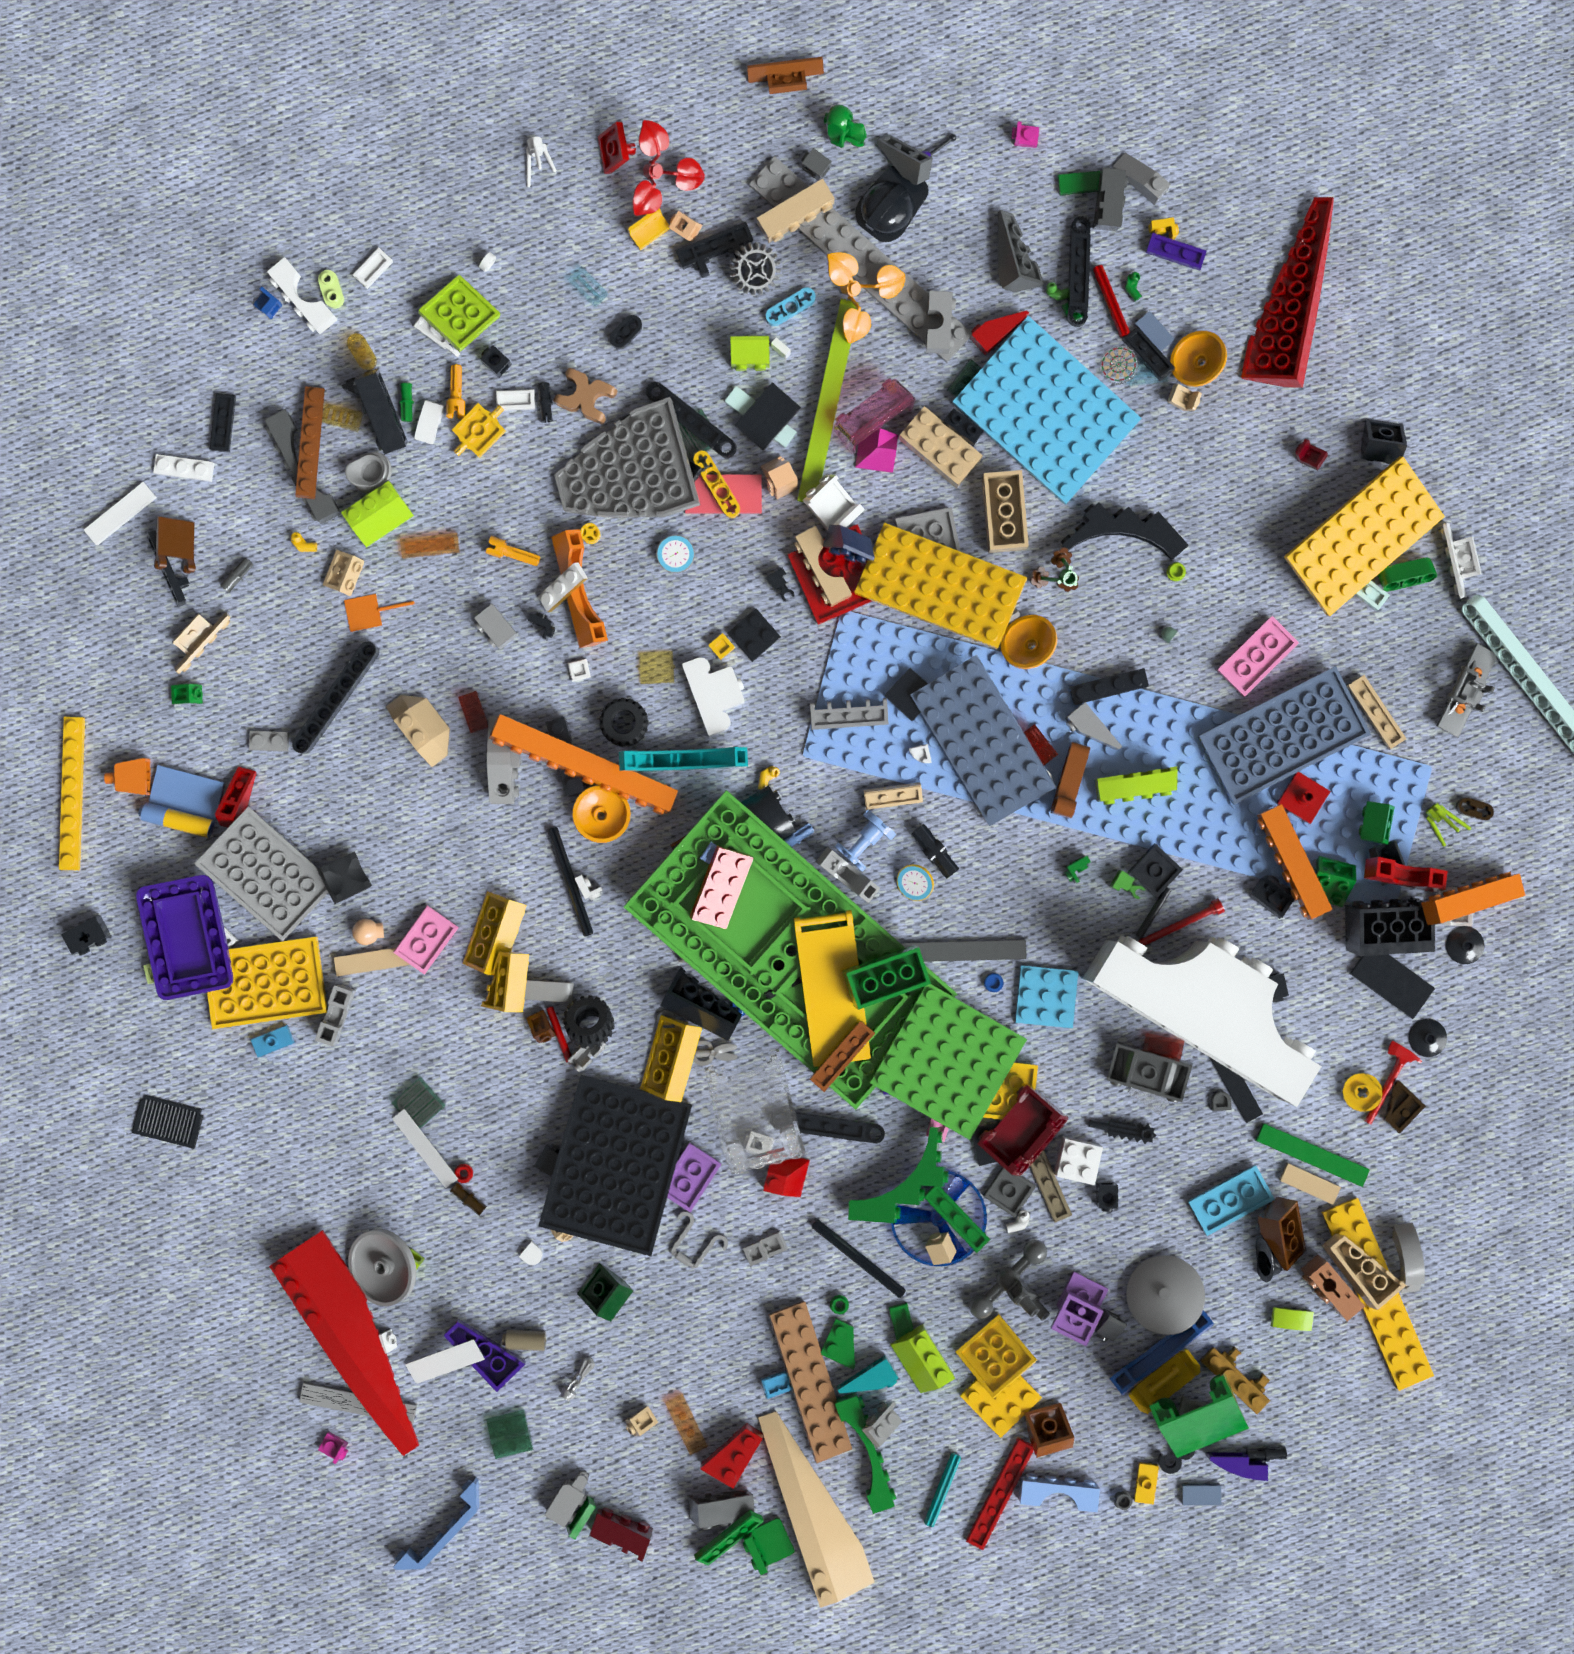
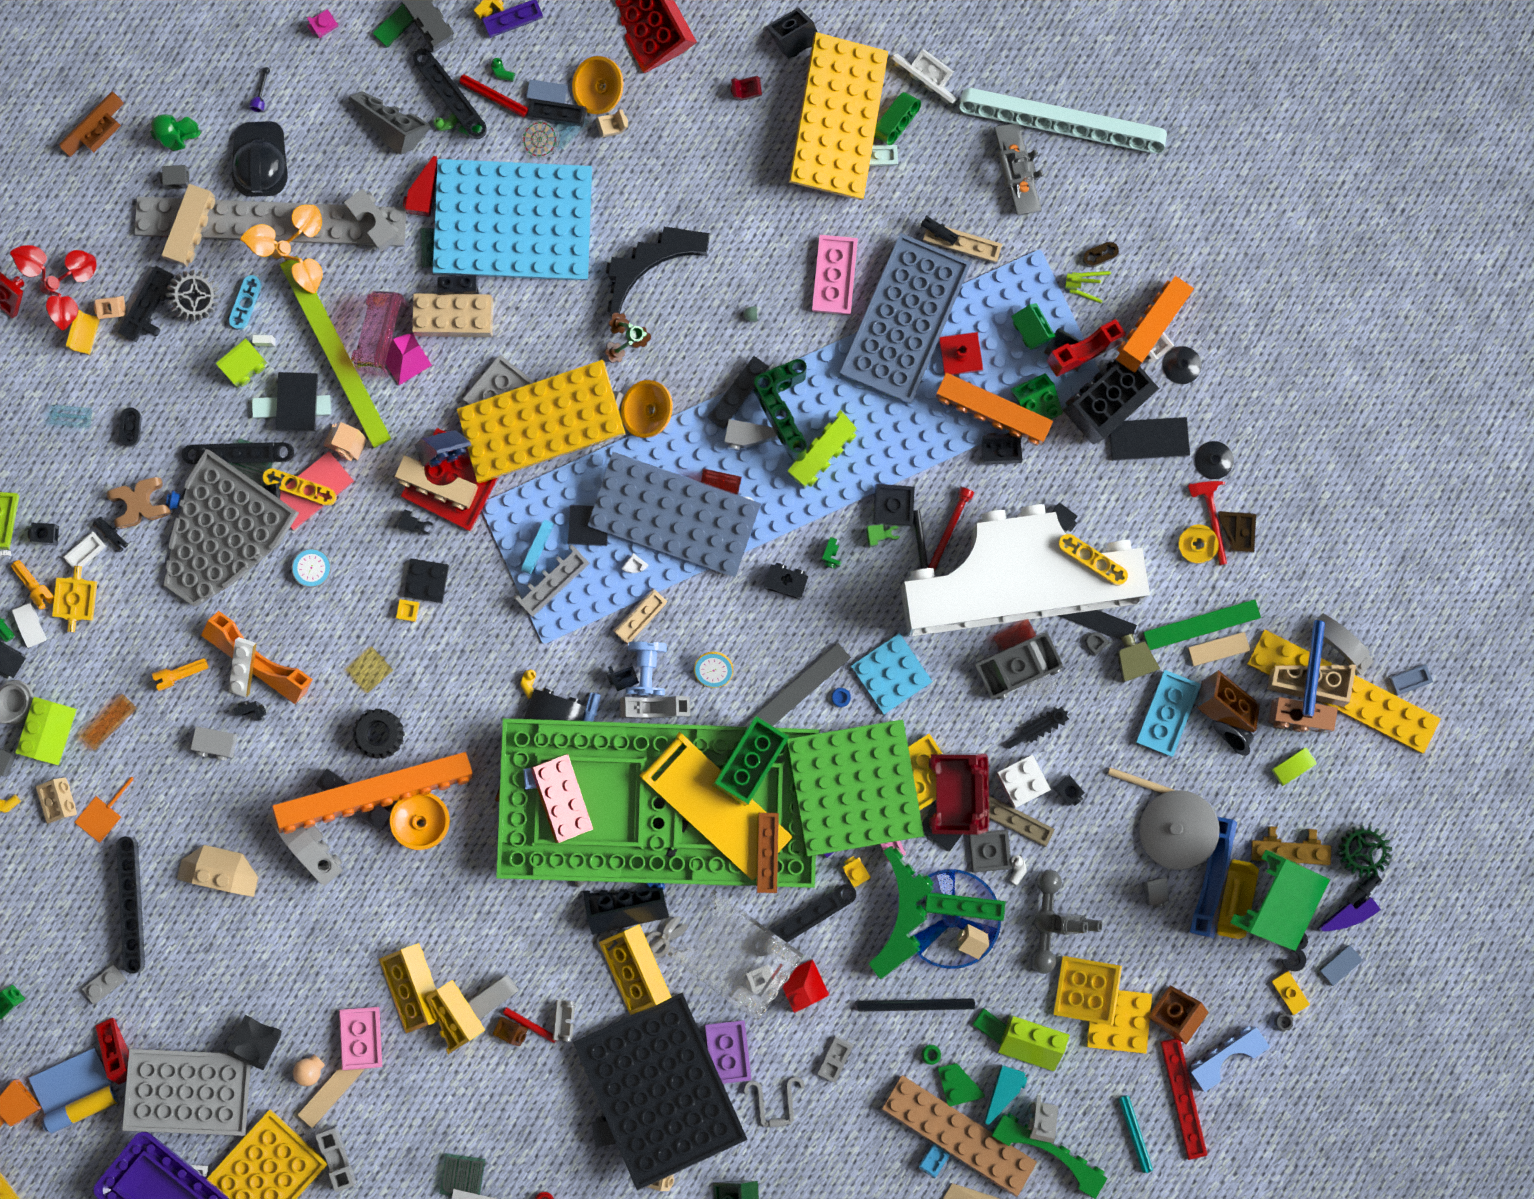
camera: 40 degrees left, 5 degrees down
(473, 712) = (251, 824): clear red plate -> none
(570, 881) = (439, 896): black axle -> none
(579, 670) = (309, 722): white tile -> none
(582, 1009) = (535, 984): black tyre -> none
(585, 885) = (453, 889): white bracket -> none
(588, 530) = (226, 606): yellow wheel -> none
(612, 415) = (172, 500): none -> blue plate
(683, 759) = (450, 724): teal arch -> none
(714, 693) = (432, 652): white brick -> none
(832, 503) = (402, 427): white panel -> none
(840, 832) = (622, 678): none -> black bracket
(859, 679) = (537, 547): none -> medium azure beam
(896, 1122) = (855, 871): none -> yellow bracket
(907, 160) = (244, 116): dark grey slope -> none
(935, 851) = (709, 632): black piece -> none
(1005, 511) = (544, 323): tan brick -> none
(1025, 871) = (794, 589): none -> black brick
(1070, 779) = (768, 489): dark orange beam -> none
(1079, 1308) = (1120, 897): medium lavender bracket -> none
(1127, 720) = (779, 380): none -> dark green beam
(1165, 1232) = (1138, 781): none -> tan bar
(1176, 571) = (717, 261): lime plate -> none
(1240, 1139) = (1135, 659): none -> olive torso
(1272, 1046) = (1094, 557): none -> yellow beam
(1290, 1435) = (1373, 847): none -> dark green gear
(1367, 689) = (939, 230): none -> black pin
(1372, 1261) = (1313, 668): none -> blue axle
(1436, 1327) = (1411, 680): none -> sand blue tile

